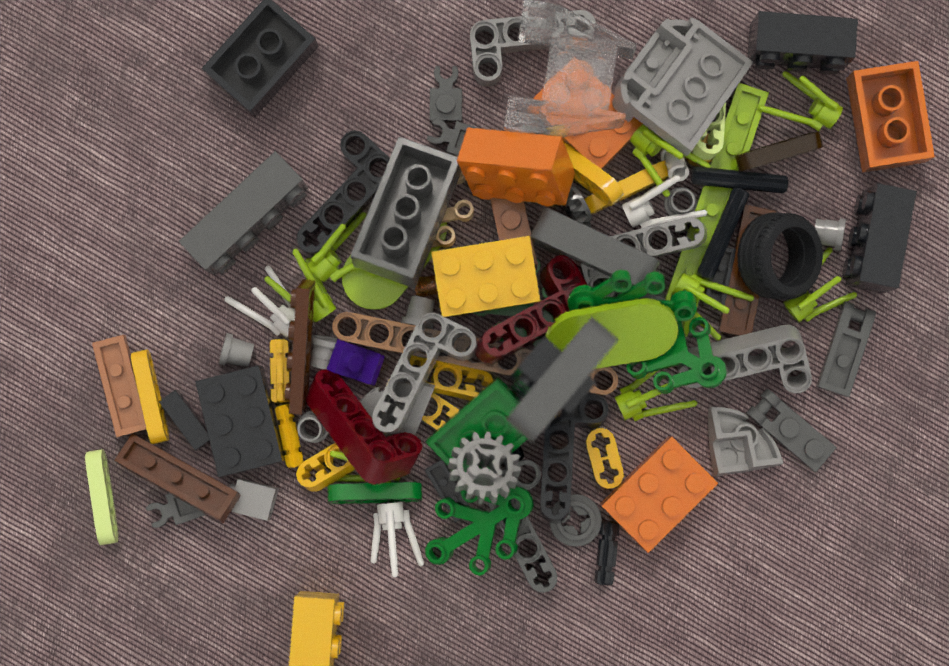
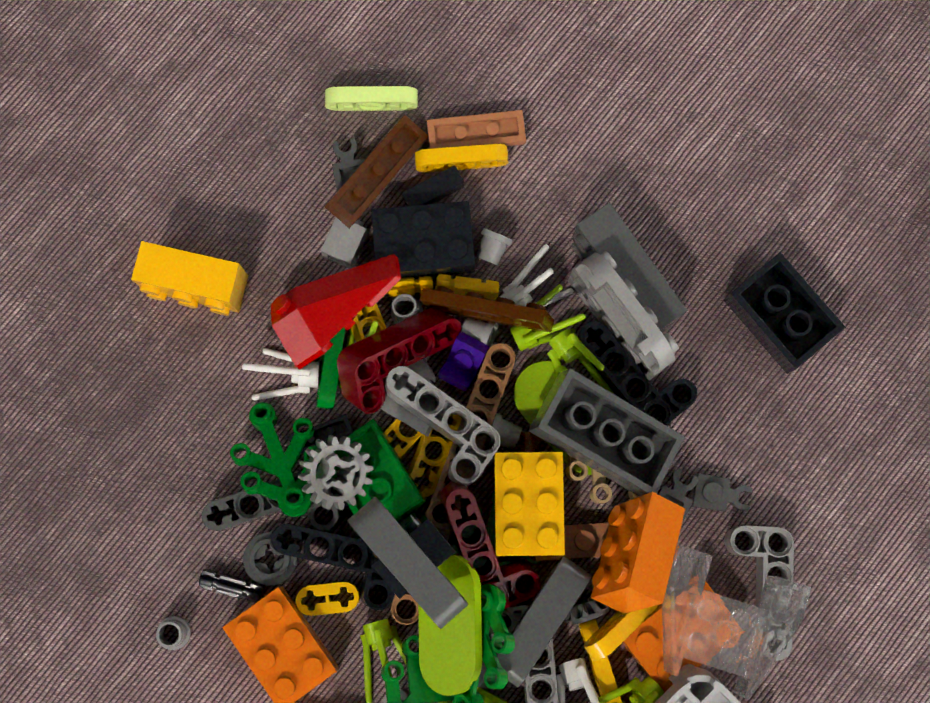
camera: 90 degrees right, 5 degrees down
(281, 220) = (615, 306): none -> light grey plate
(327, 510) = (319, 309): none -> red wedge
(650, 596) = (184, 632): none -> light grey piece

